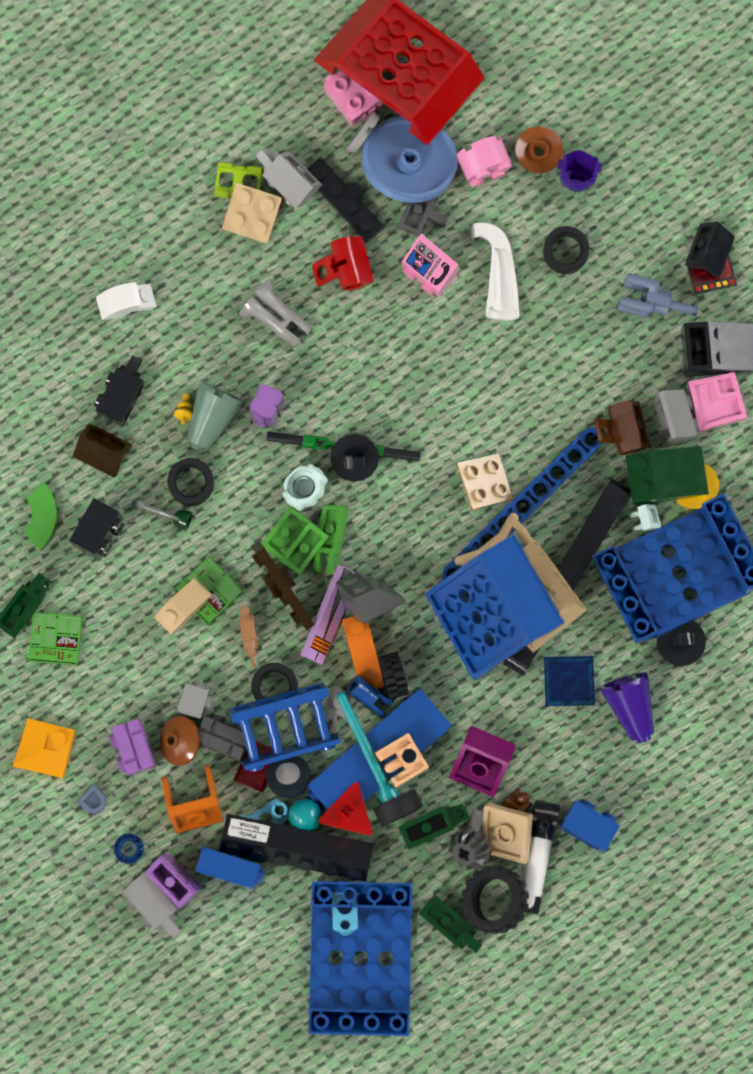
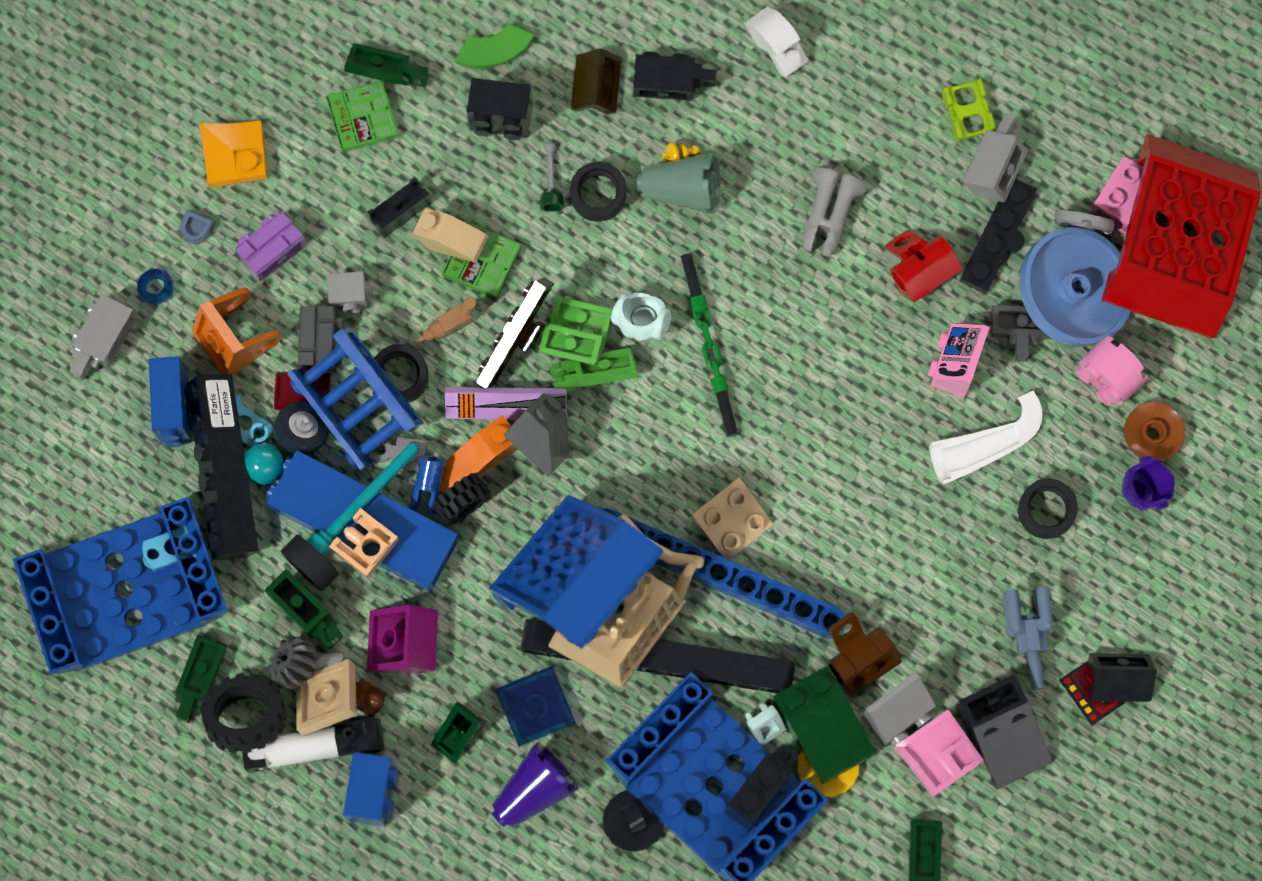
camera: 70 degrees right, 5 degrees down
(141, 638) = (399, 208): none -> black hinge
(173, 880) = (134, 346): medium lavender brick -> none
(179, 740) = (296, 292): dark orange dish -> none
(252, 213) = (937, 138): tan plate -> none
(266, 406) = (716, 237): medium lavender brick -> none
(349, 812) = (282, 508): red piece -> none
(354, 457) = (700, 360): black tile -> none
(568, 746) = (457, 732): none -> dark green slope
(698, 537) = (761, 787): none -> black hinge

